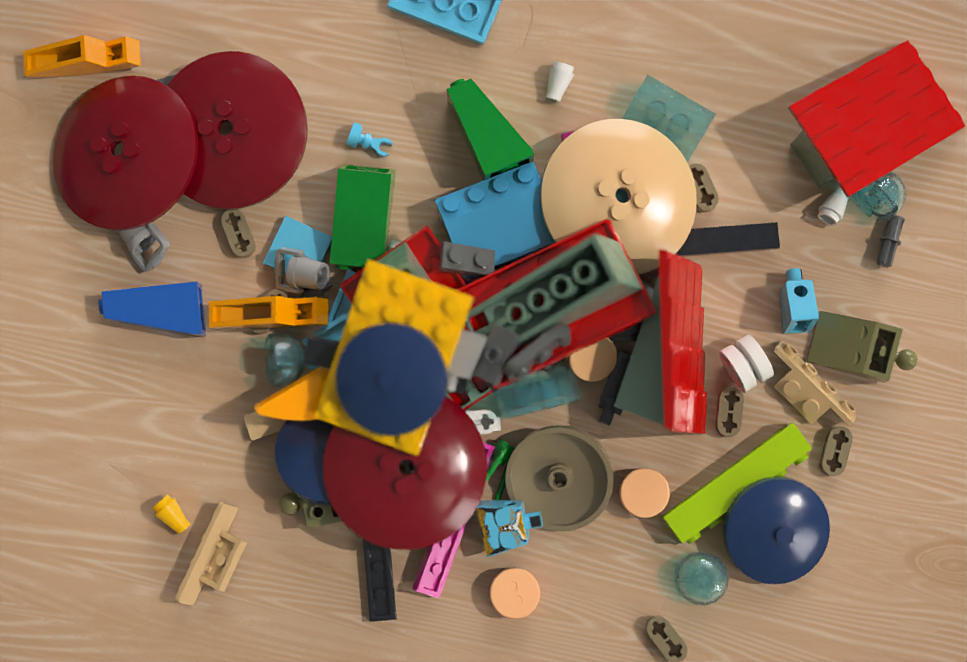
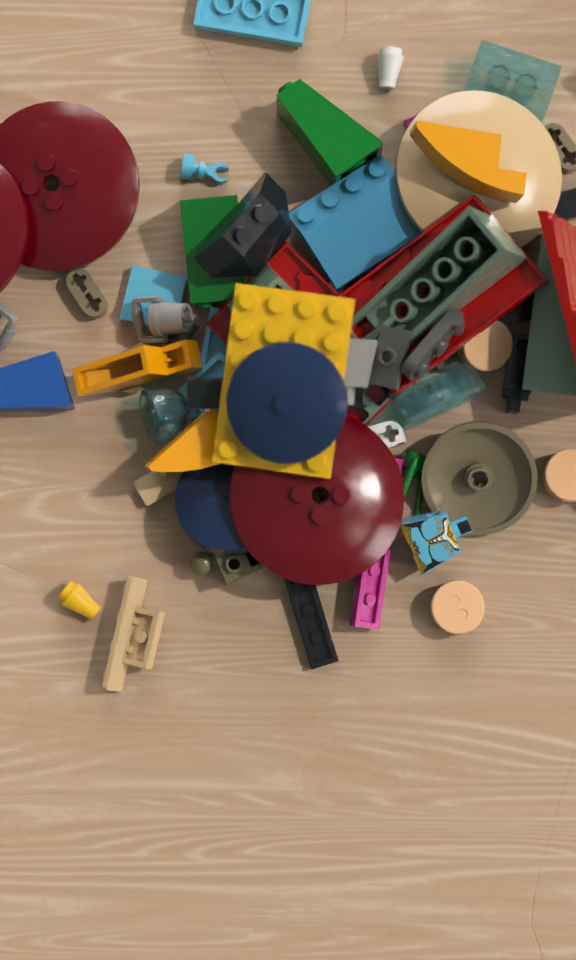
camera: 10 degrees left, 0 degrees up
(394, 211) = (248, 233): none -> black wedge
(466, 259) = (334, 268): dark grey plate -> none
(610, 185) = (470, 159): none -> light orange slope

